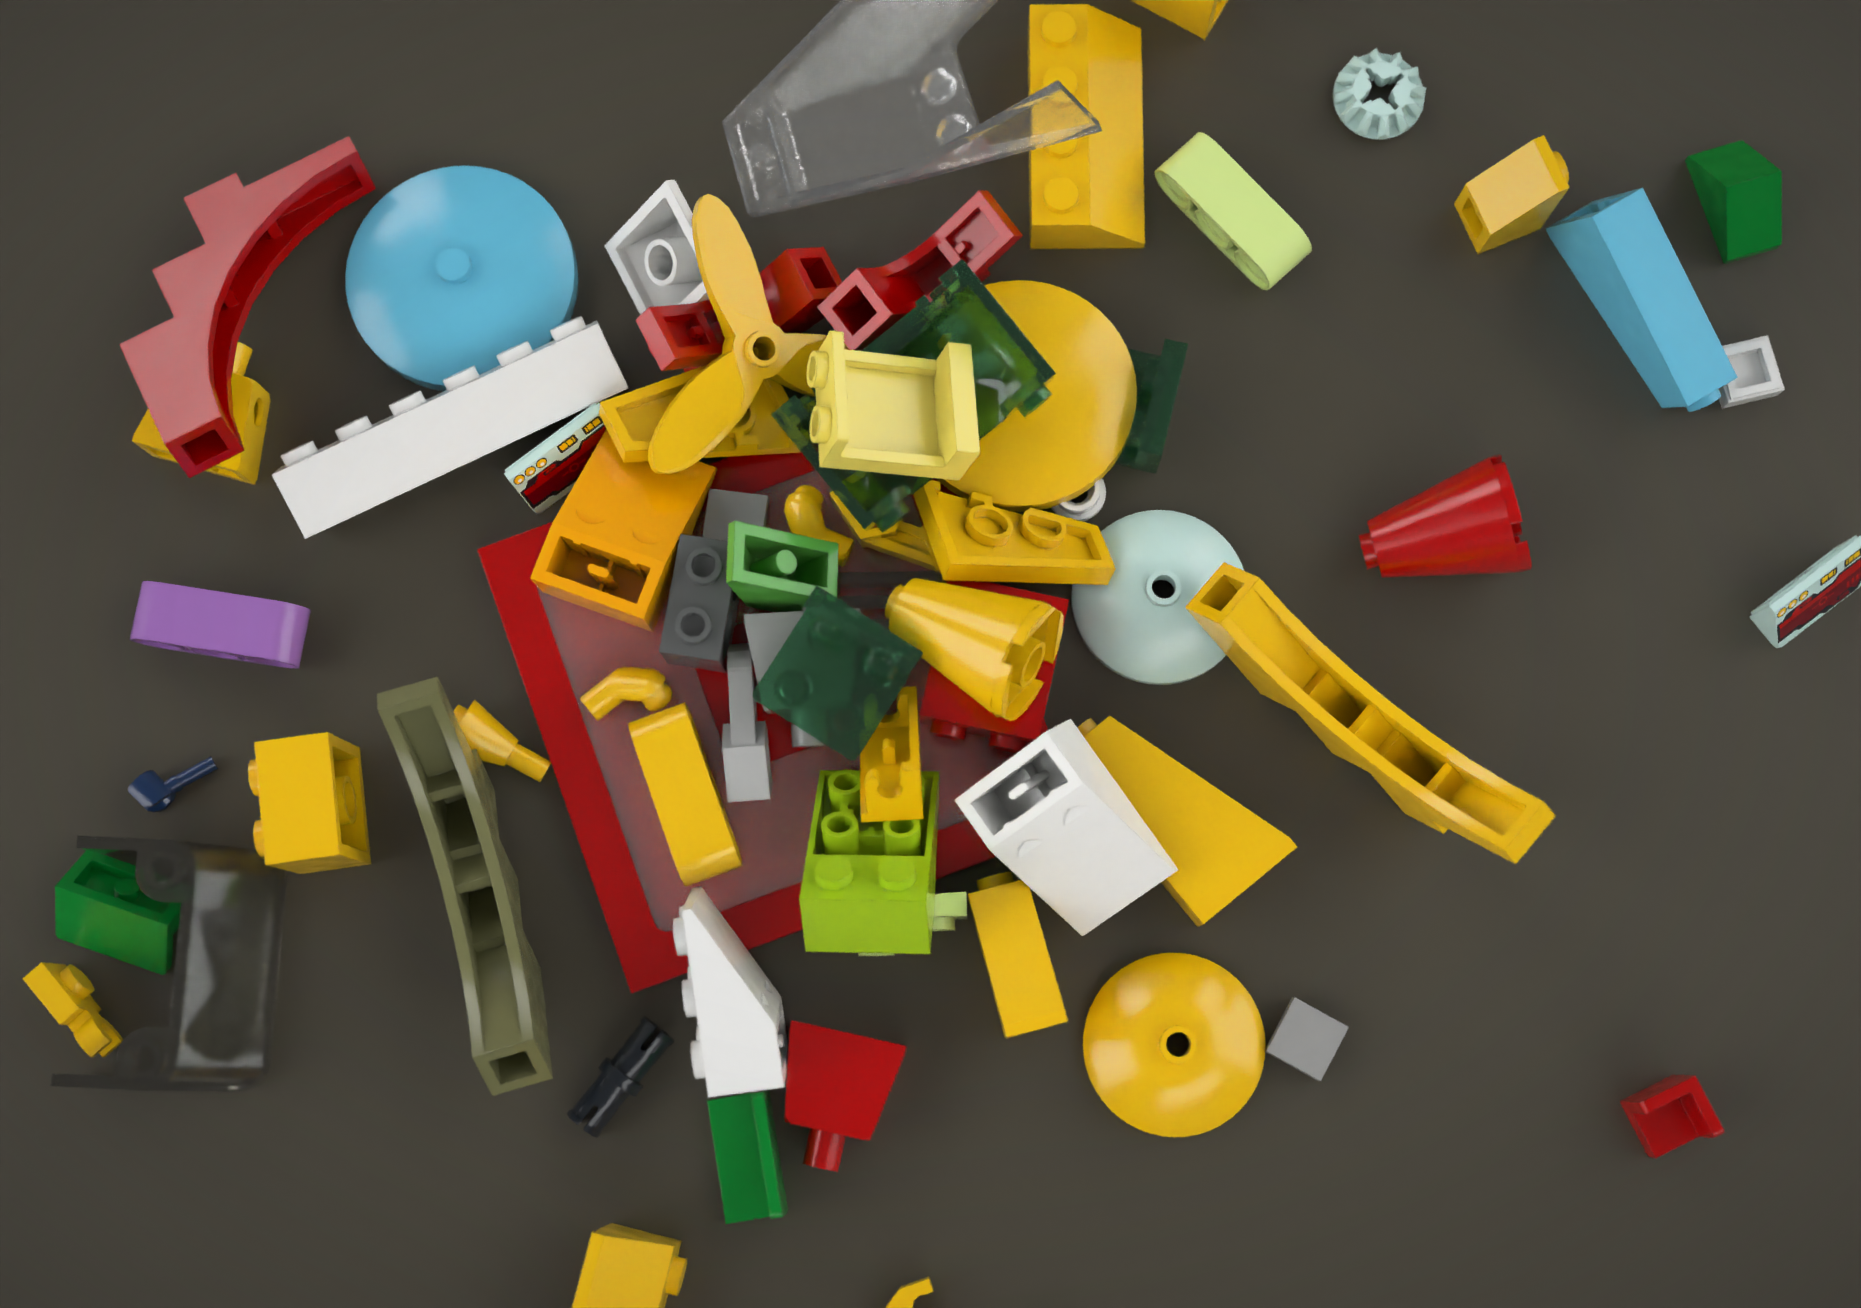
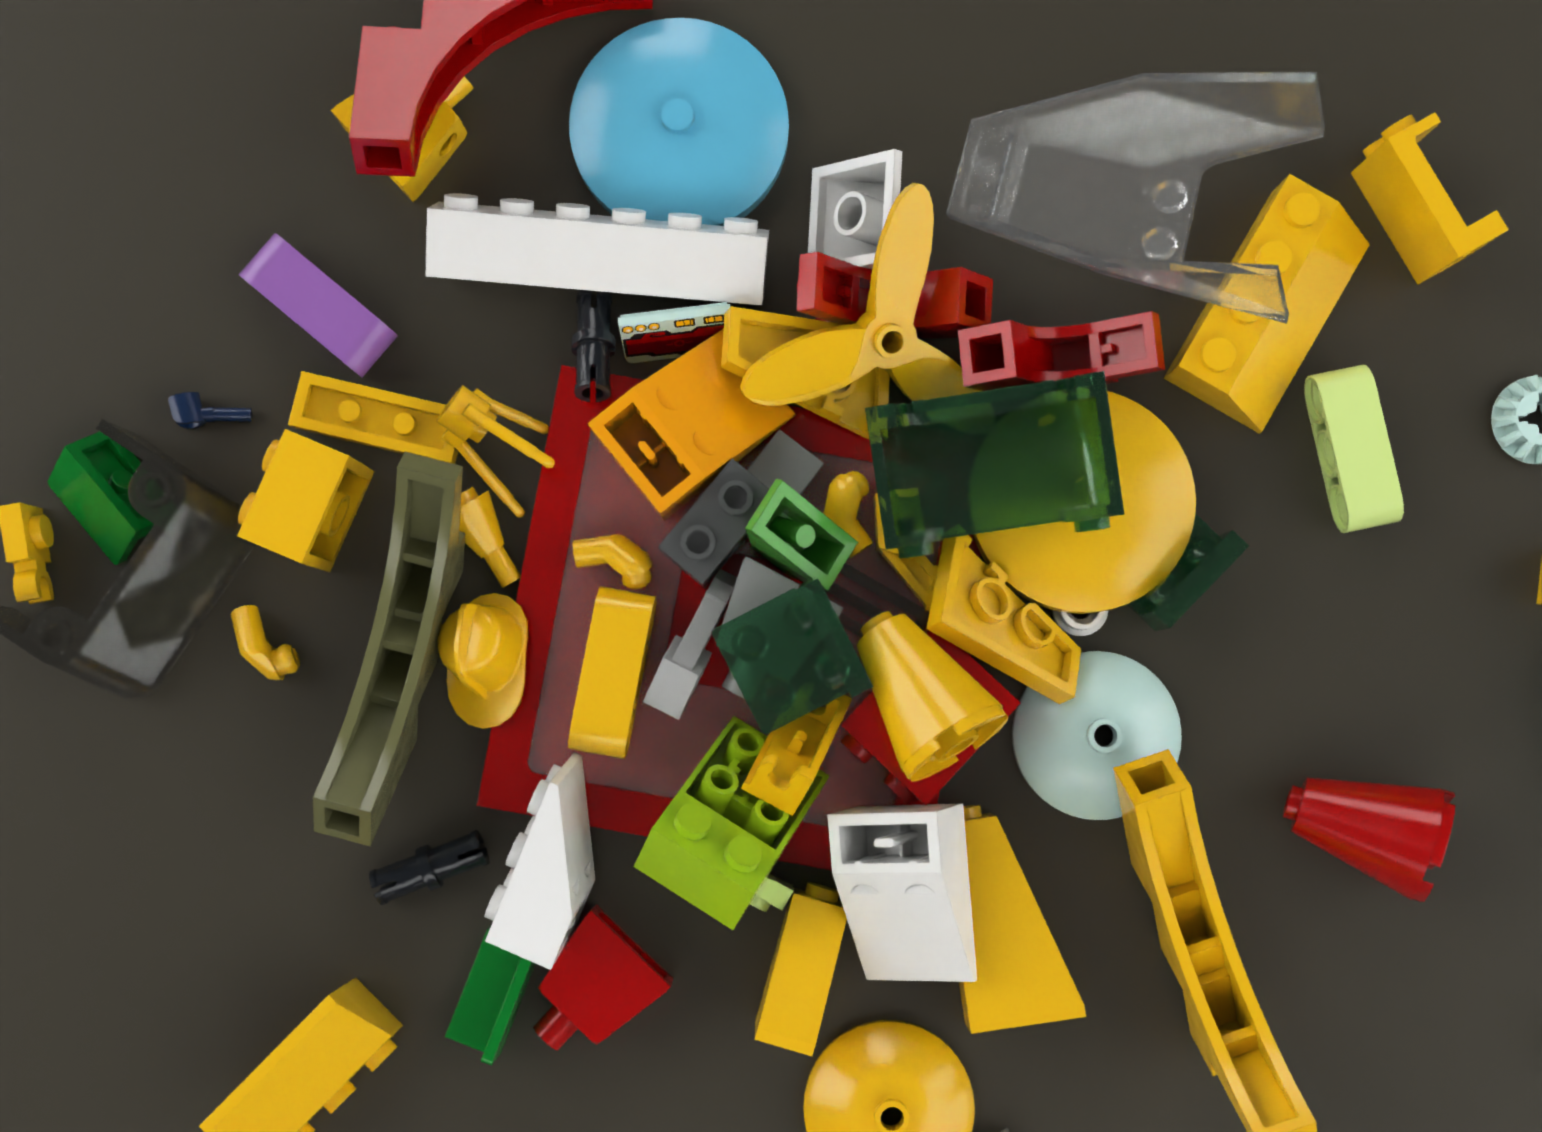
camera: 25 degrees right, 5 degrees up
(329, 694) = (370, 417): none -> yellow plate
(344, 972) = (257, 650): none -> yellow arm
(422, 638) = (471, 417): none -> yellow plant
(496, 513) = (593, 345): none -> black pin
(561, 855) = (485, 659): none -> yellow piece
(894, 410) = (970, 463): light yellow panel -> none

